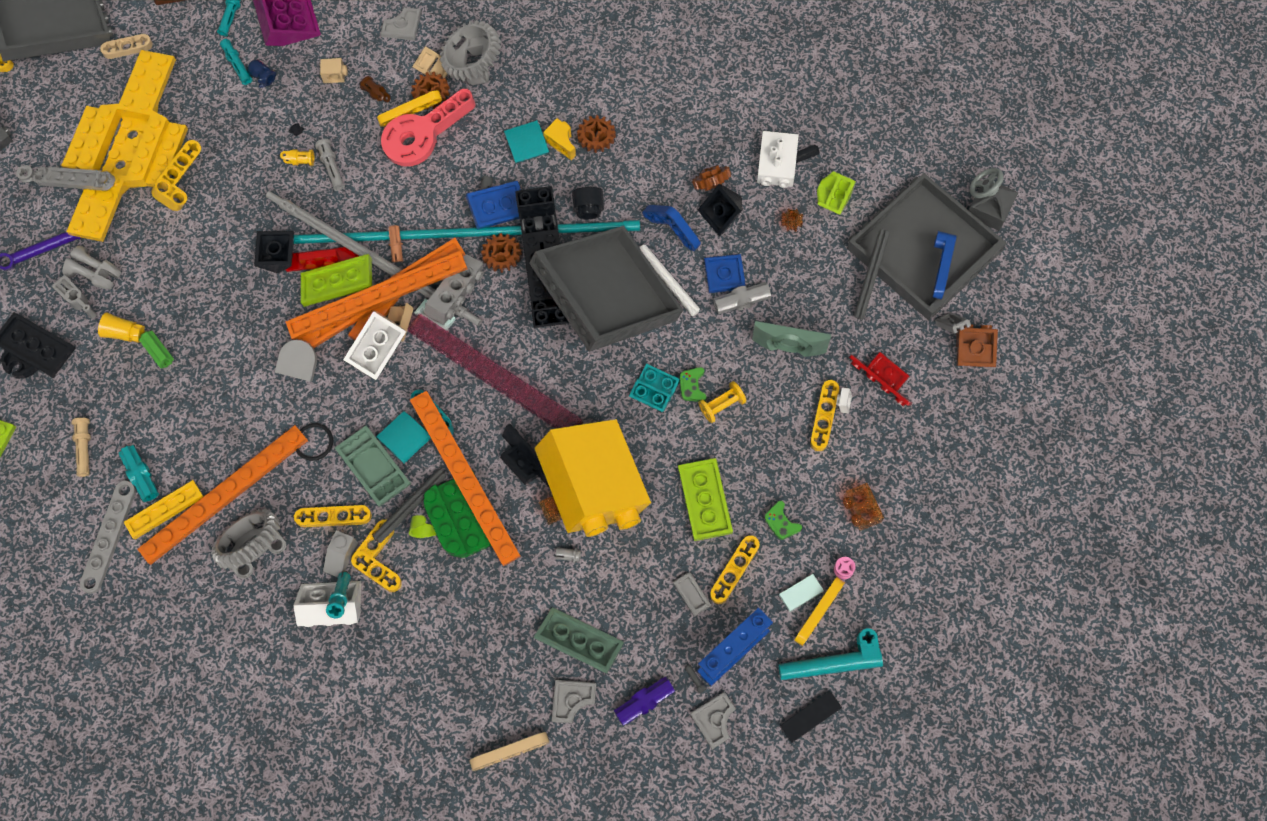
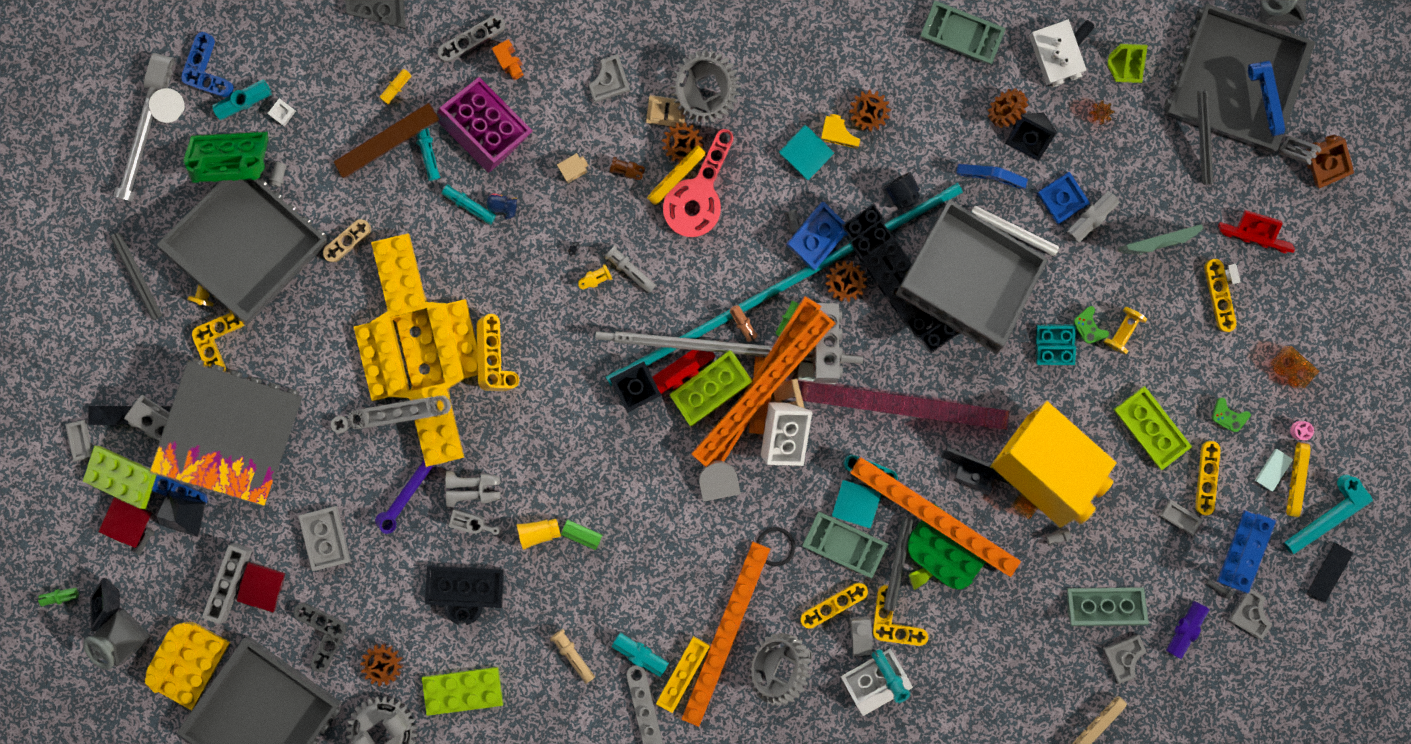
camera: 25 degrees left, 20 degrees up
(705, 110) = (962, 33): none -> sand green slope

